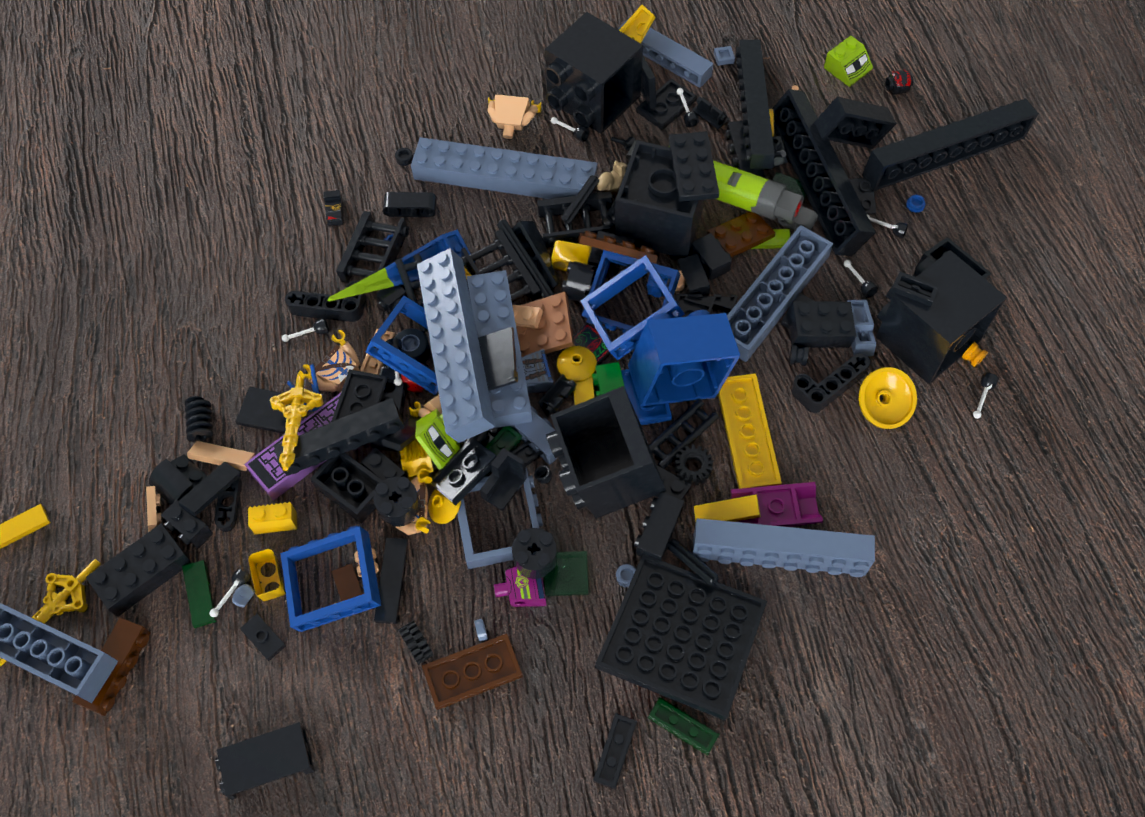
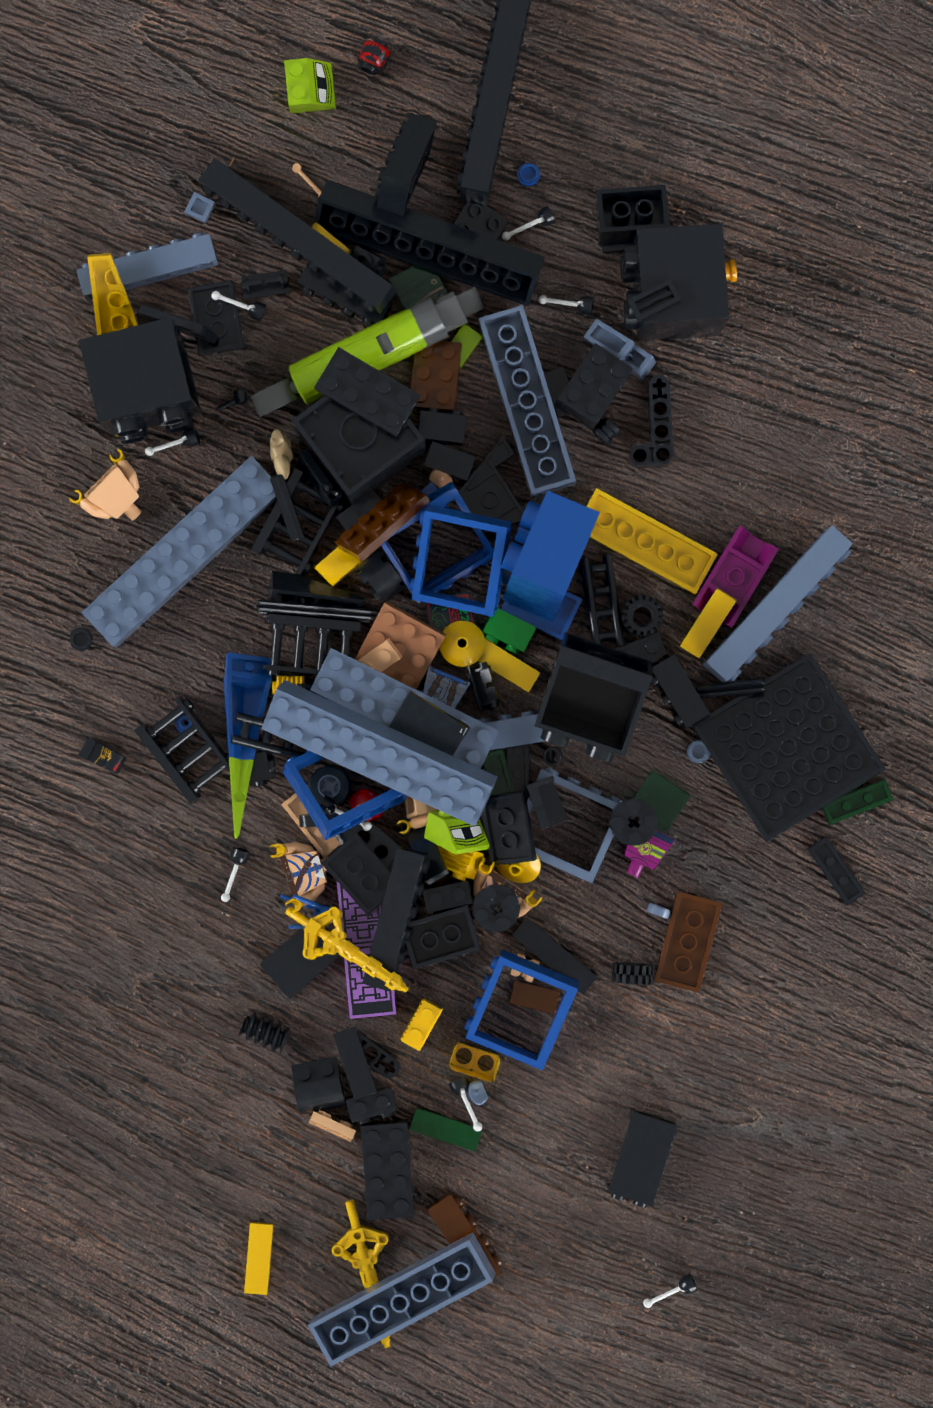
camera: 50 degrees left, 25 degrees up
(219, 454) = (318, 1033): light nougat tile -> none
(262, 637) = (527, 1097): black plate -> none
(302, 304) = (216, 837): black beam -> none
(409, 204) = (153, 676): black beam -> none
(898, 398) = (720, 391): yellow dish -> none
(989, 382) = (760, 284): hinge -> none

